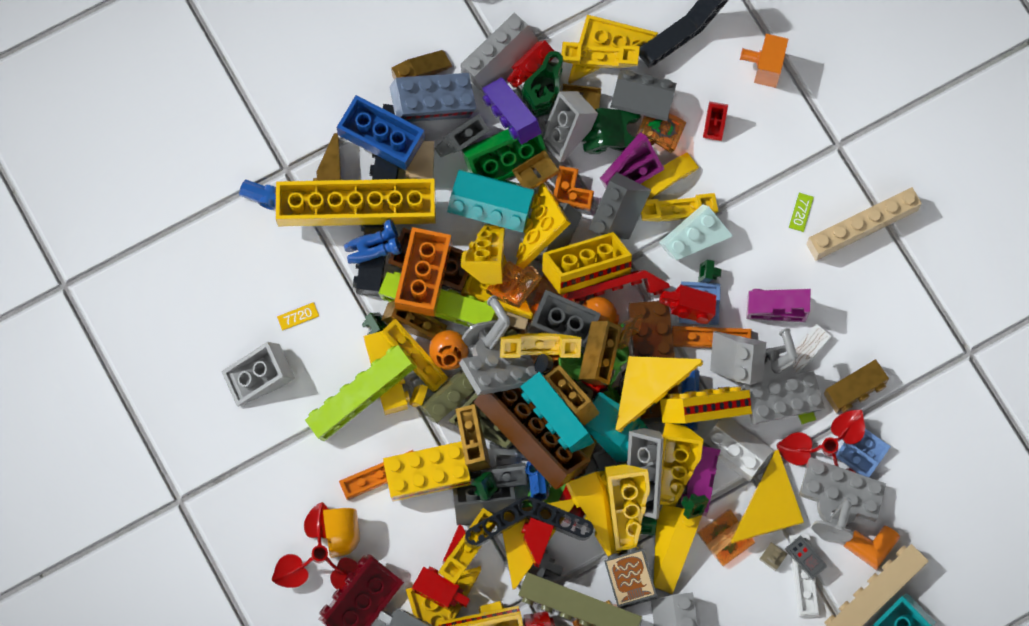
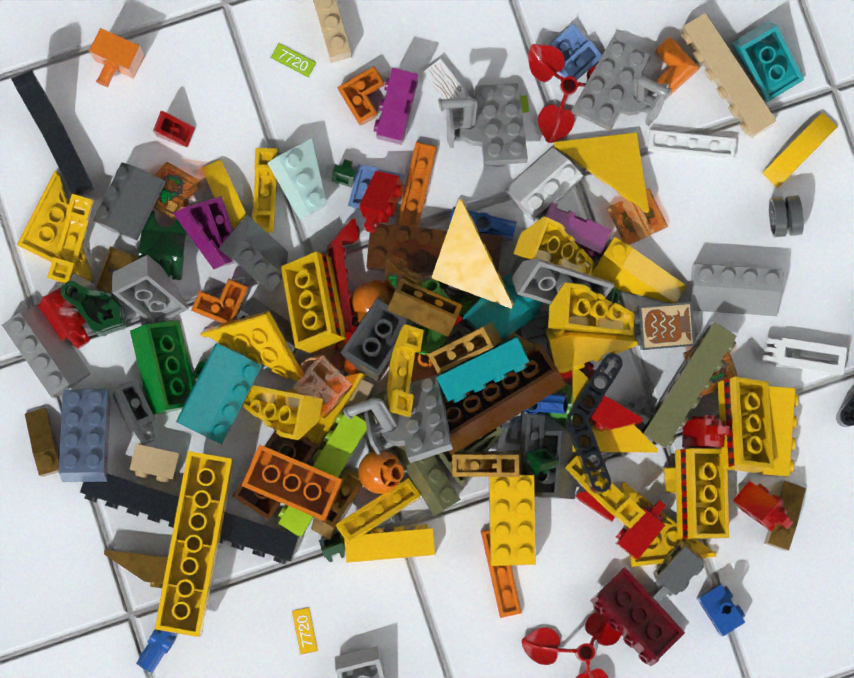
camera: 80 degrees left, 10 degrees up
(341, 531) = (559, 624): light orange brick -> none
(360, 393) = (412, 577): lime brick -> none
(364, 242) = (241, 542): blue piece -> none
(380, 132) = (117, 501): blue brick -> none
(418, 395) = (422, 514): yellow tile -> none
(511, 111) = (119, 350): dark purple brick -> none
(543, 364) = (423, 371): black tile -> none
(544, 166) = (188, 327): pearl gold piece -> none
(694, 506) = (606, 242): dark green tile -> none
(705, 405) = (501, 206): yellow brick -> none
(738, 358) = (452, 162): light grey slope -> none
(773, 556) = (666, 172): dark tan tile -> none
(782, 268) = (356, 93): none -> orange brick
(806, 557) = (676, 138): dark grey tile -> none
(856, 387) = (502, 44): pearl gold brick -> none

